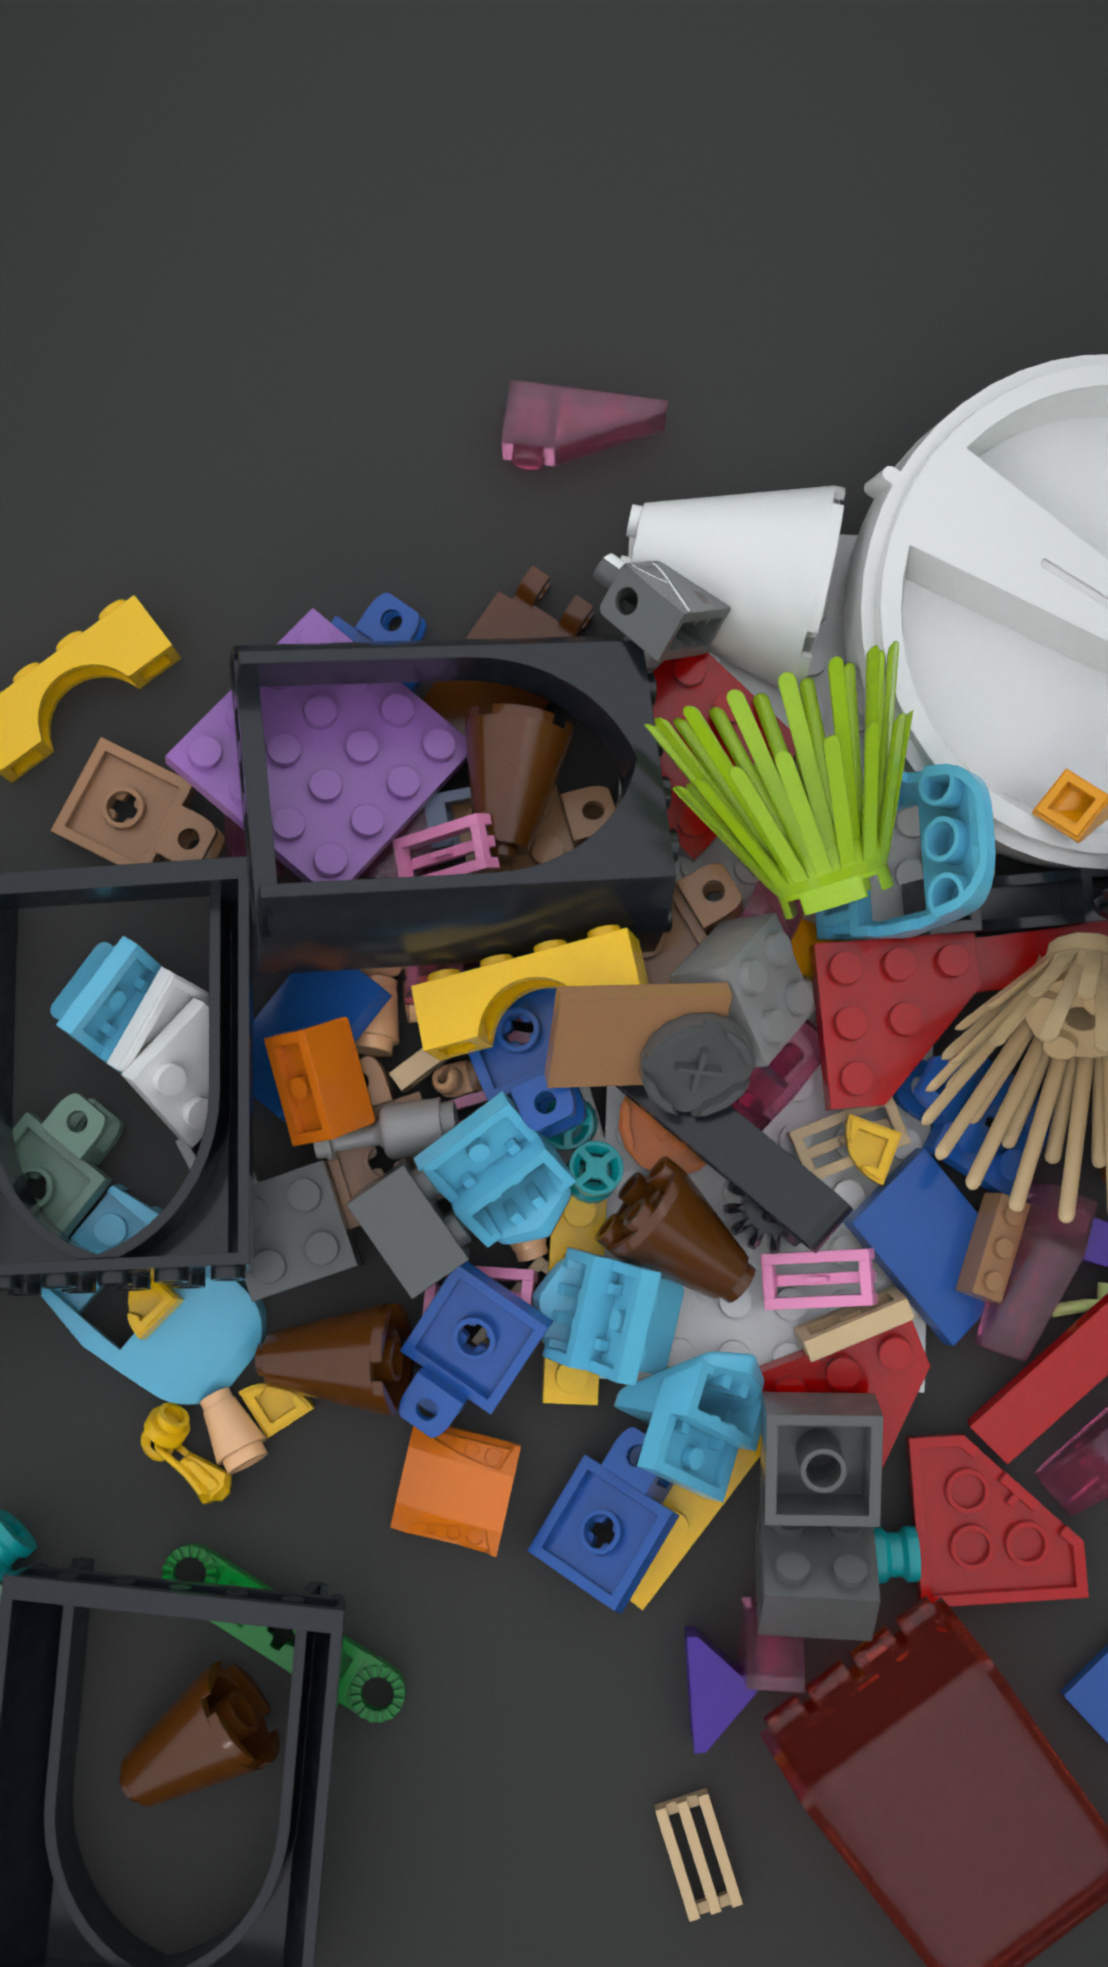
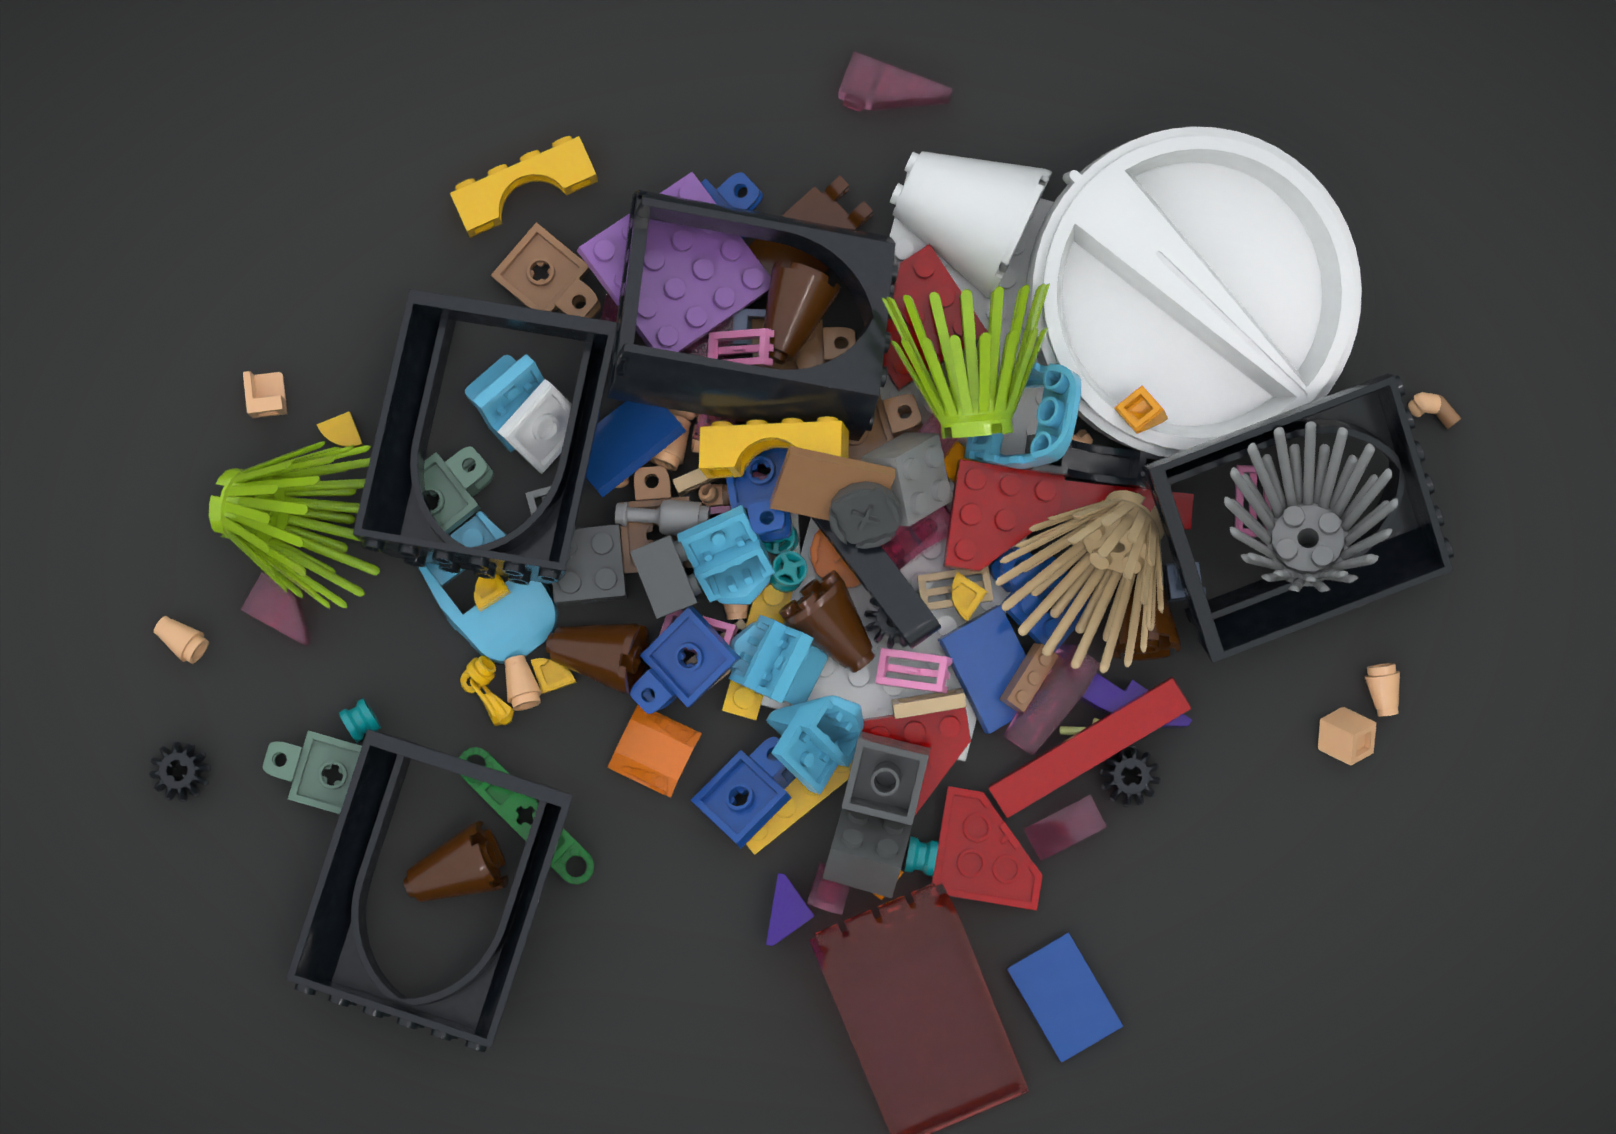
camera: 10 degrees right, 0 degrees up
(175, 1073) = (539, 449): white wing -> none
(320, 1081) = (629, 473): orange panel -> none
(659, 608) = (911, 225): dark grey torso -> none
(712, 1901) = (756, 1045): tan tile -> none

